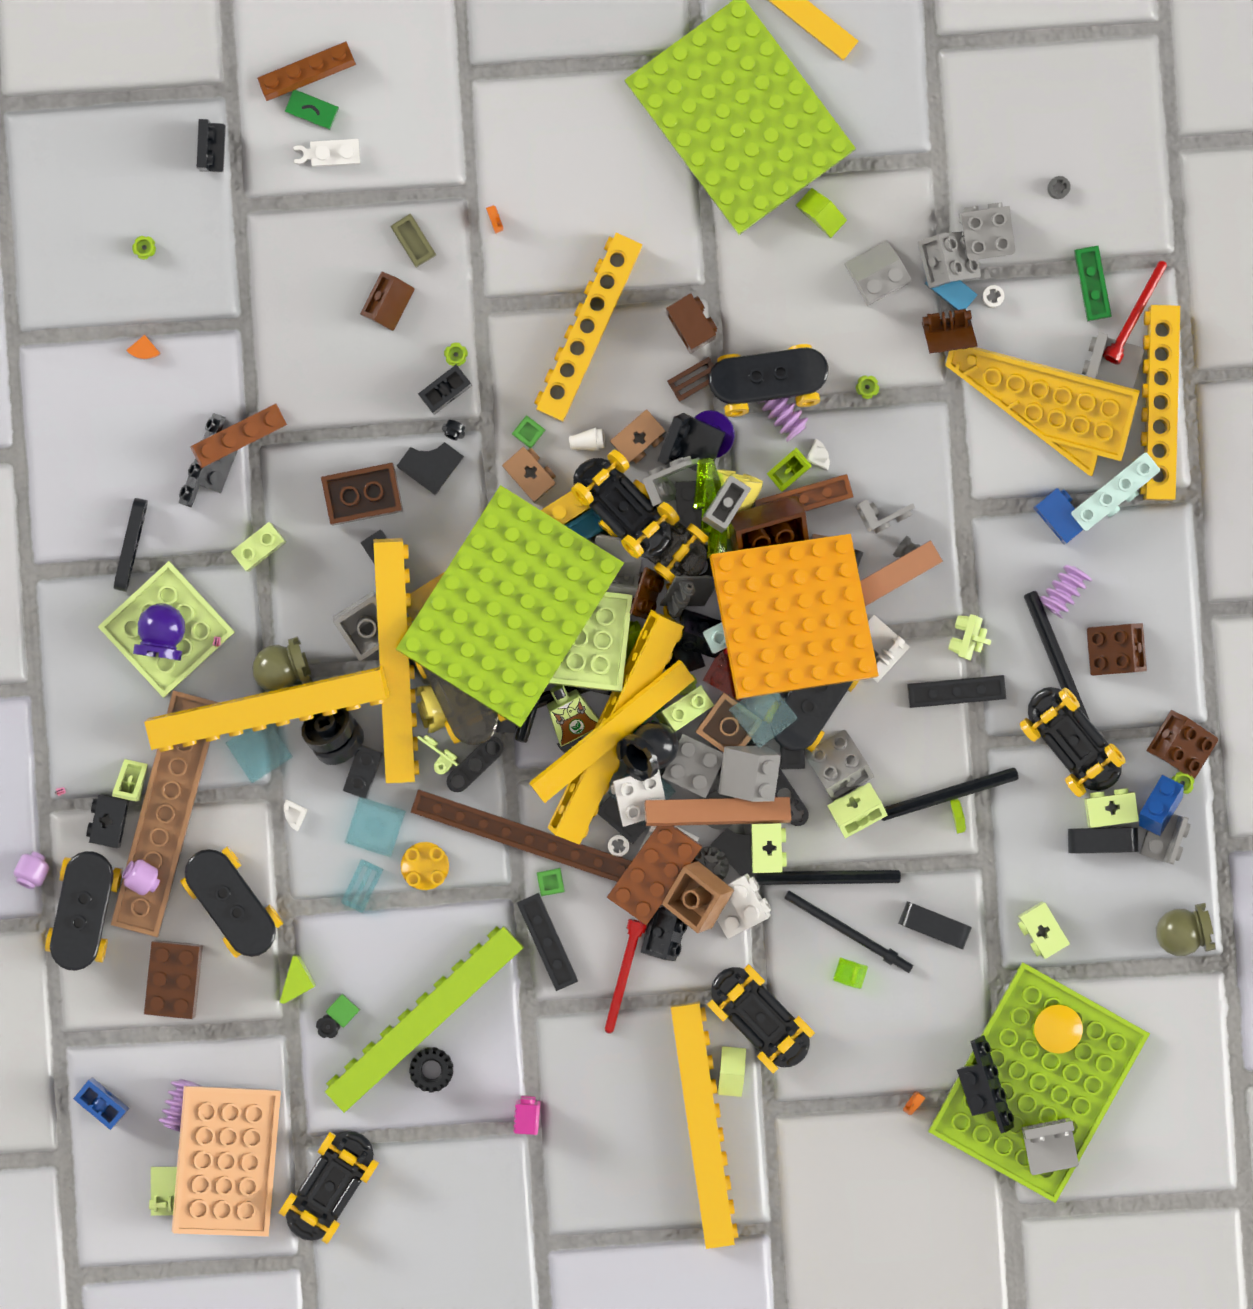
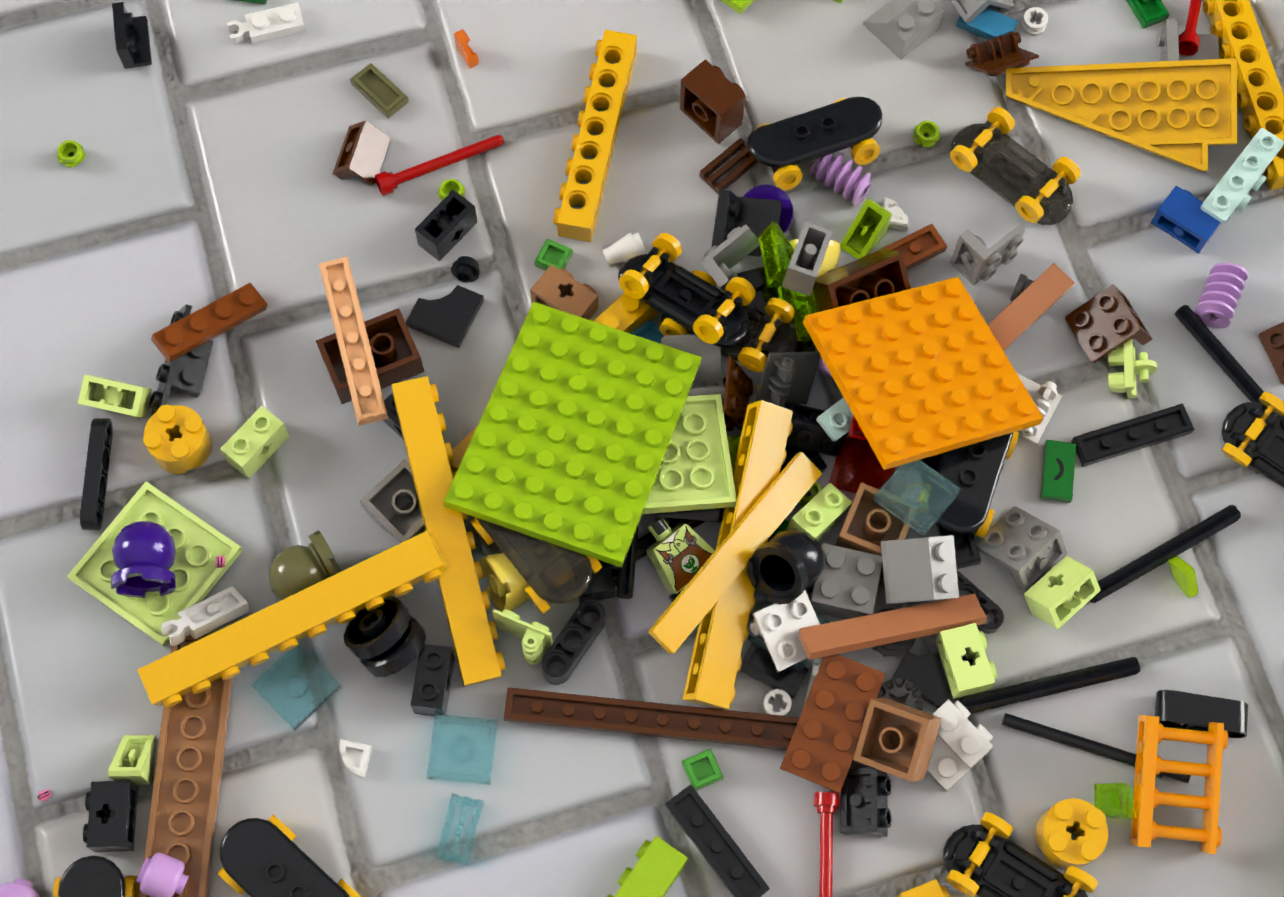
camera: 15 degrees left, 20 degrees down
(143, 349) = (84, 259): orange tile -> none
(154, 484) = (114, 396): none -> yellowish green brick
(184, 533) = (177, 439): none -> yellow brick
(201, 683) = (206, 616): none -> white plate
(350, 484) = (353, 341): none -> light nougat tile
(406, 333) = (388, 181): none -> red piece
(424, 866) = (536, 784): yellow dish -> none
(645, 424) = (689, 226): medium nougat brick -> none
(813, 1005) = (1087, 824): none -> yellow brick
(882, 957) = (1147, 796): none -> light orange fence
(887, 708) = (1058, 471): none -> green tile
(929, 438) = (1013, 171): none -> clear smoke piece
(965, 595) = (1106, 324): none -> reddish brown bracket

